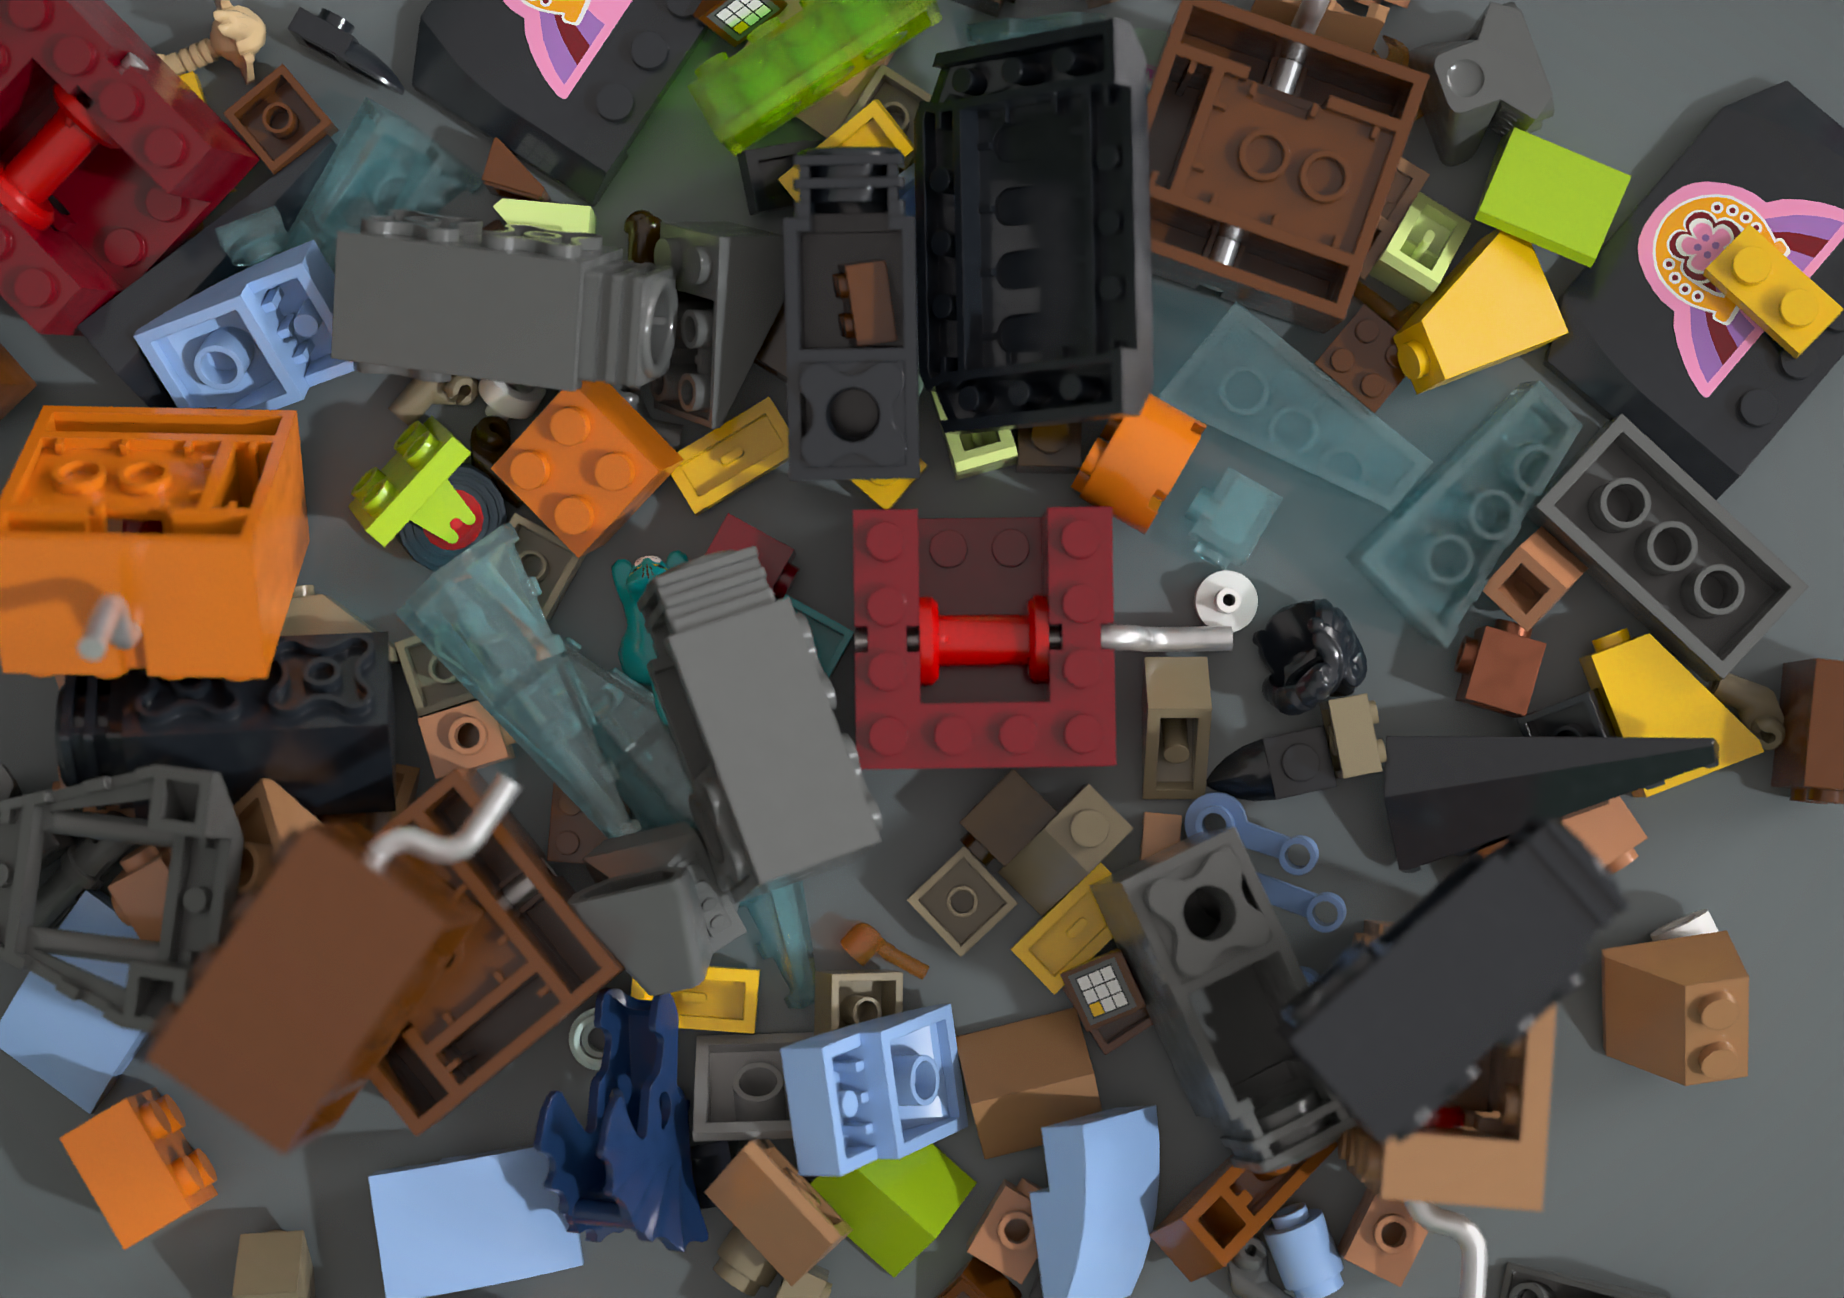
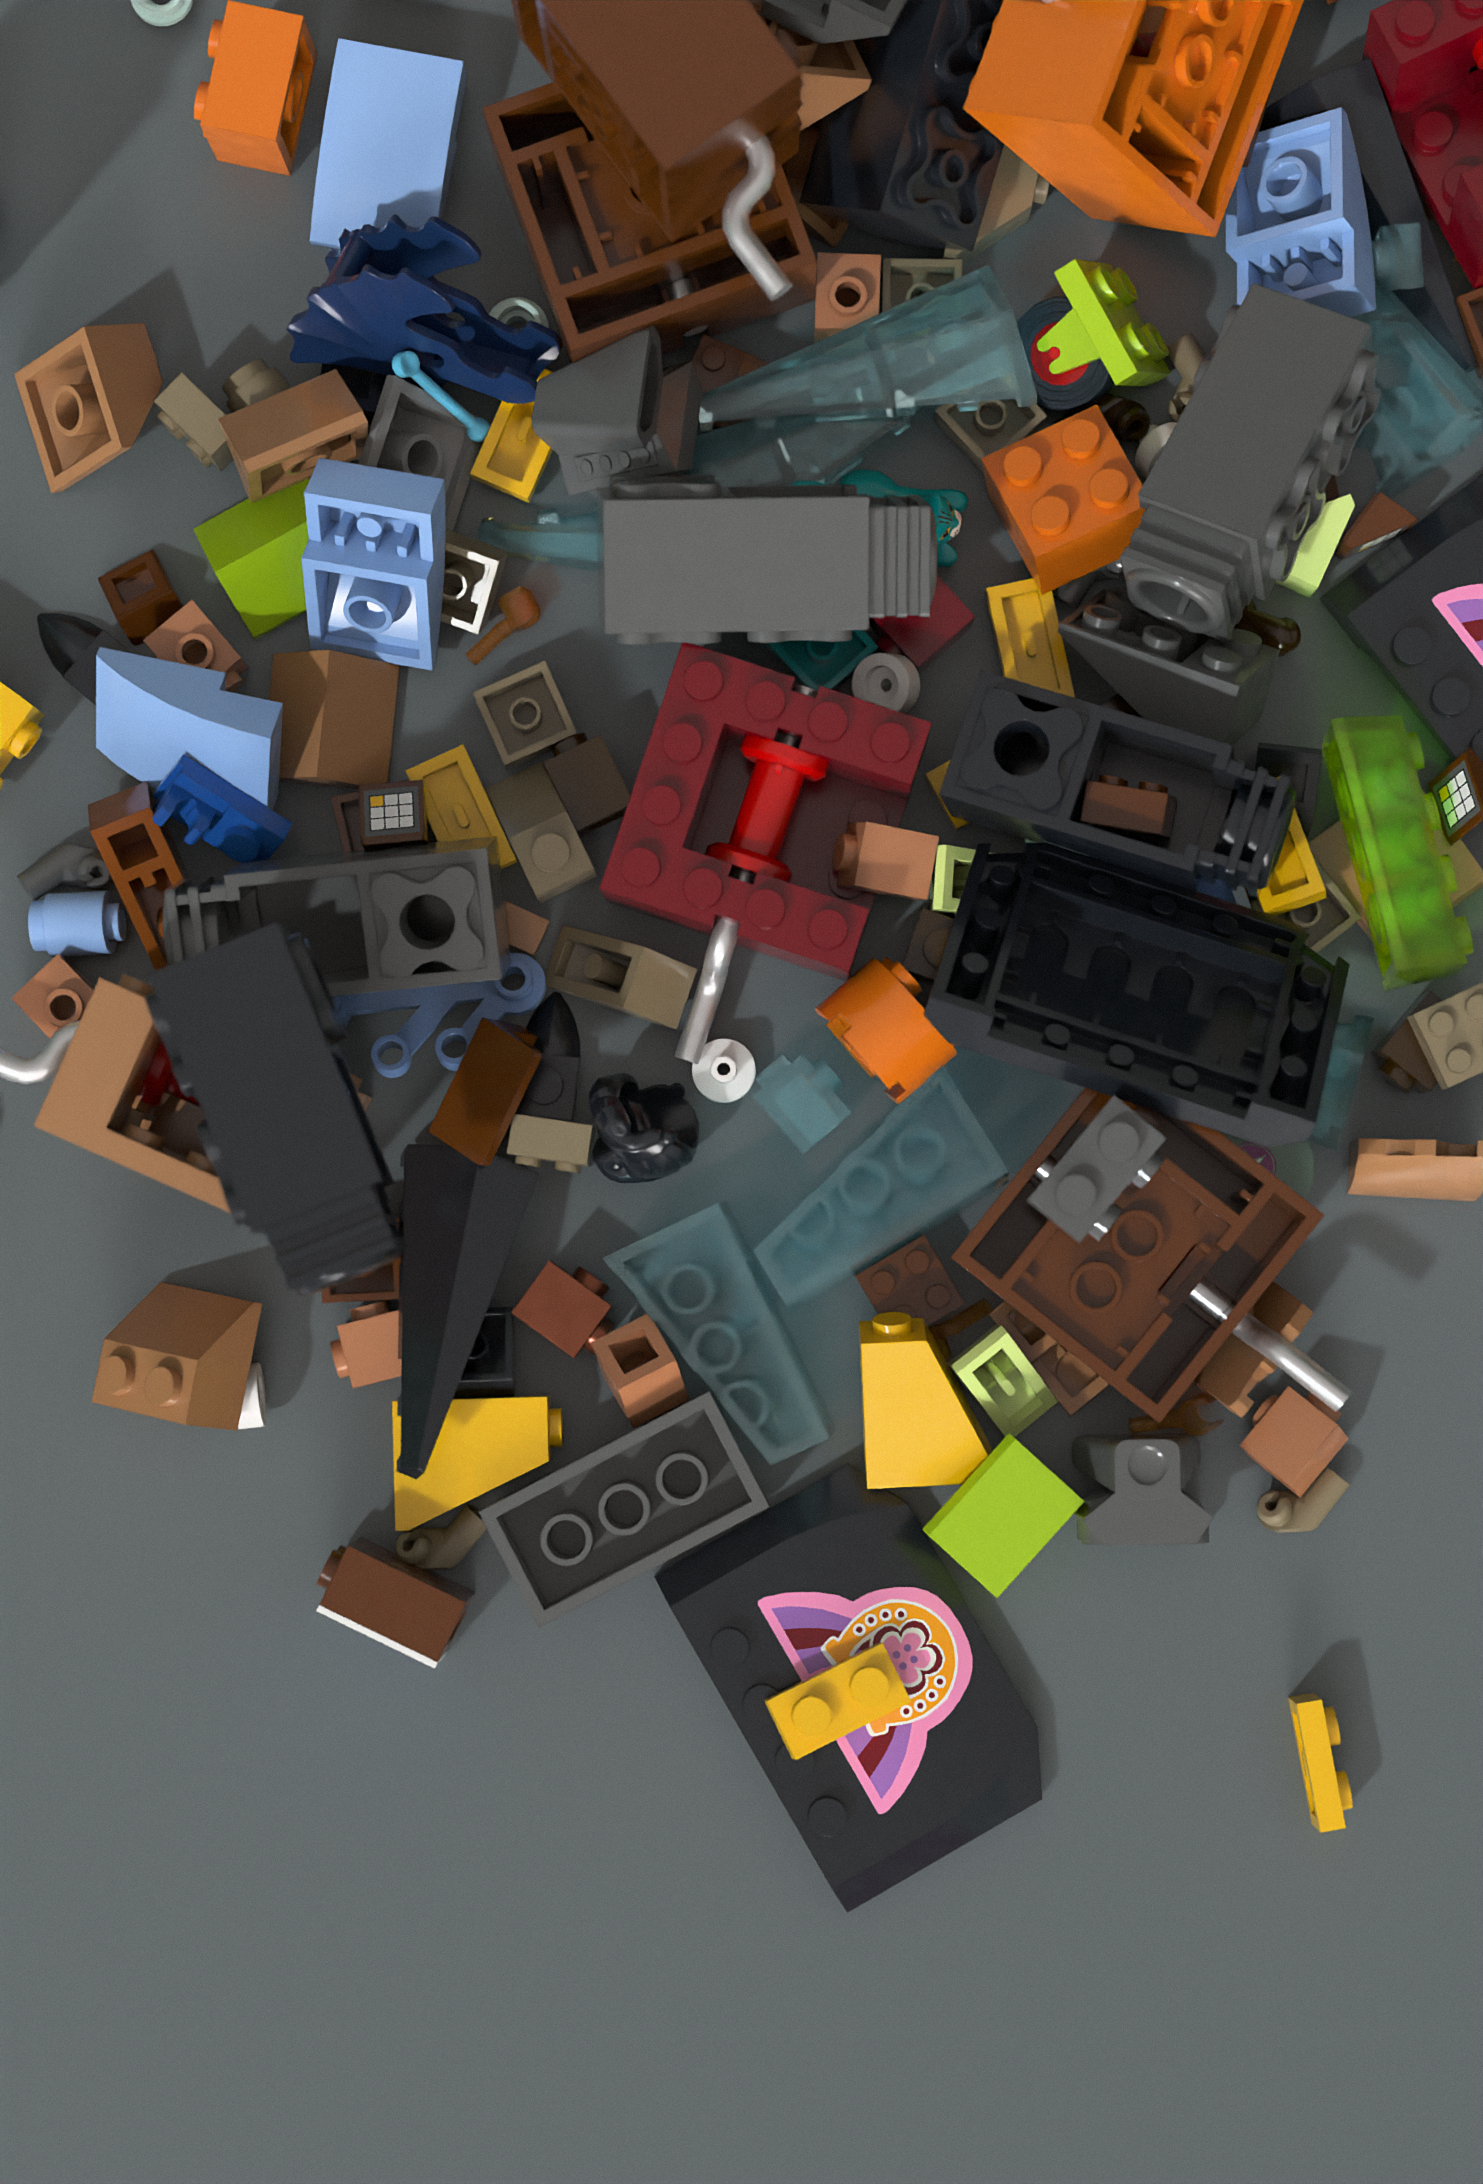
camera: 115 degrees right, 0 degrees up
(678, 1124) = (407, 364): none -> medium azure hinge
(820, 573) = (887, 681): none -> white tile
(986, 515) = (885, 860): none -> nougat brick
(1161, 1154) = (218, 813): none -> blue plate
(1224, 207) = (1096, 1170): none -> dark grey brick
(1328, 809) = (487, 1089): none -> reddish brown panel

